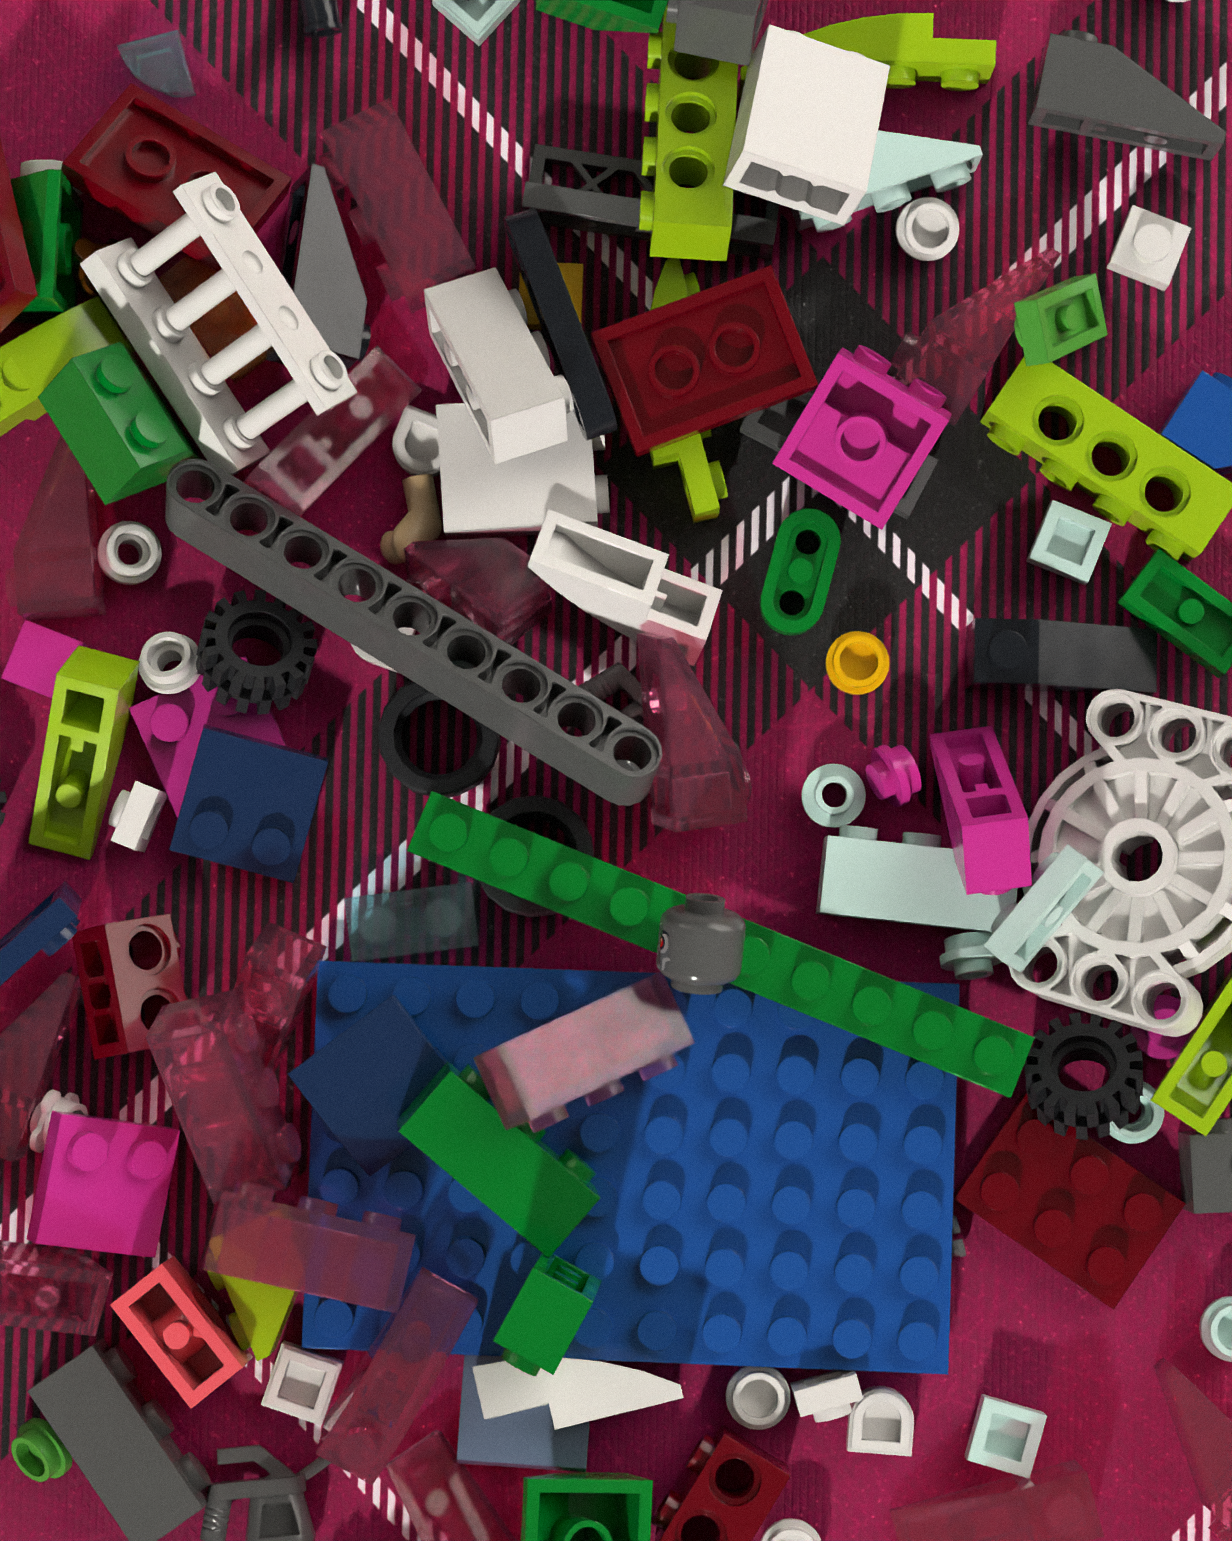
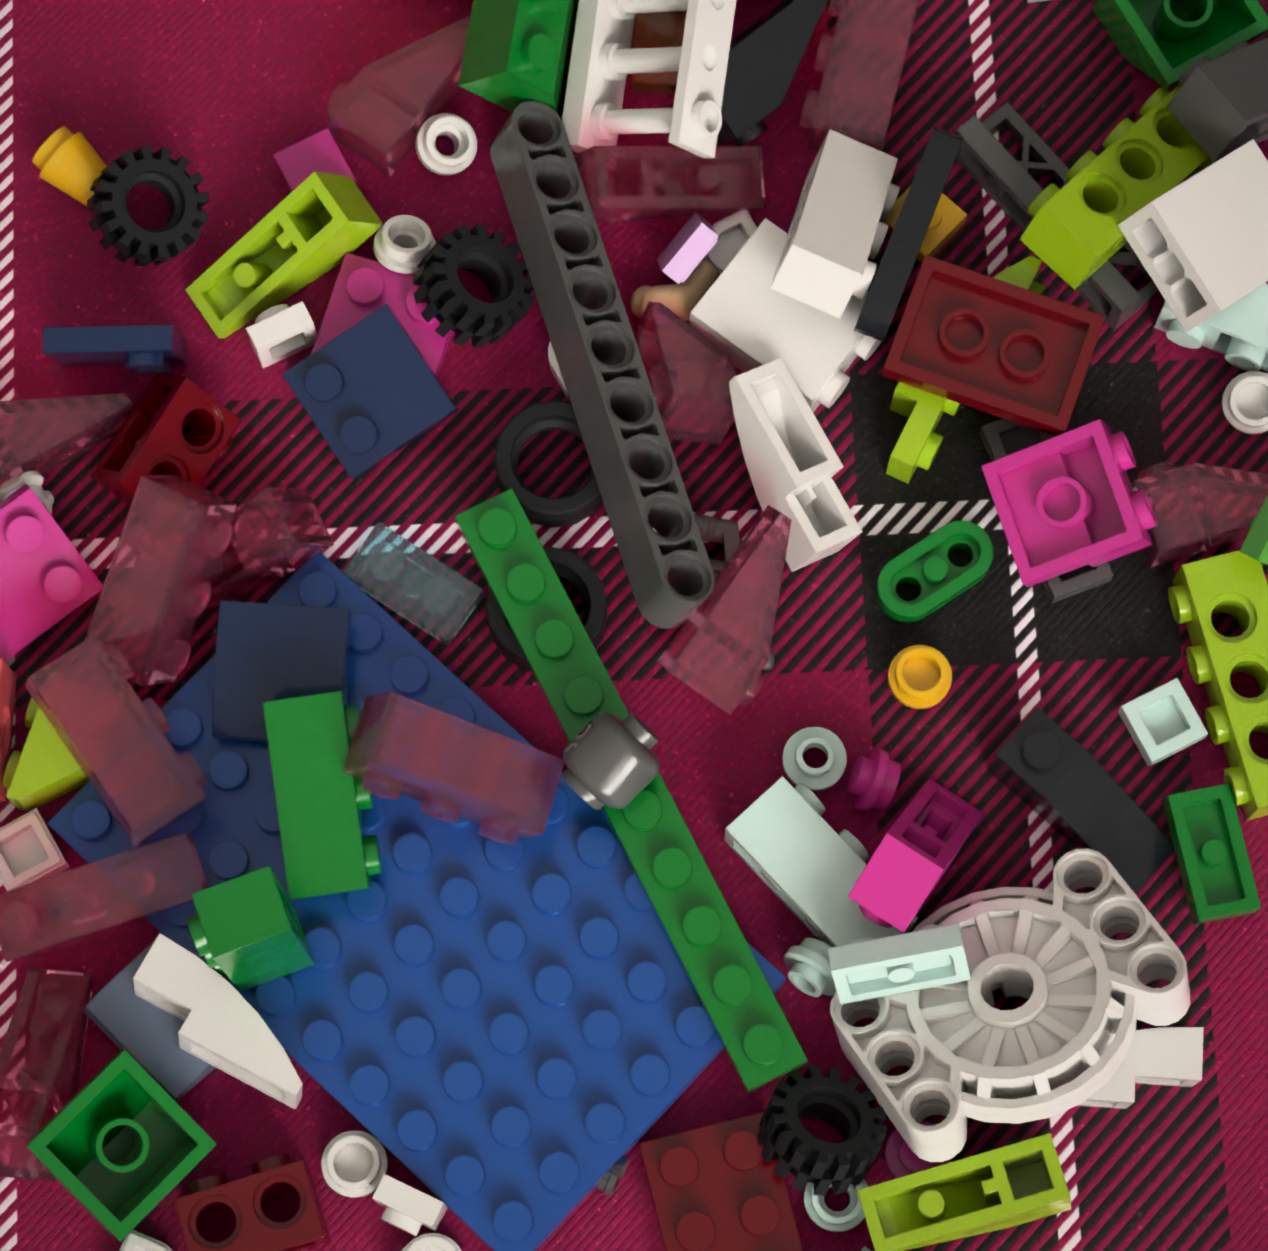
camera: 40 degrees right, 10 degrees down
(393, 478) = (688, 248): none -> tile

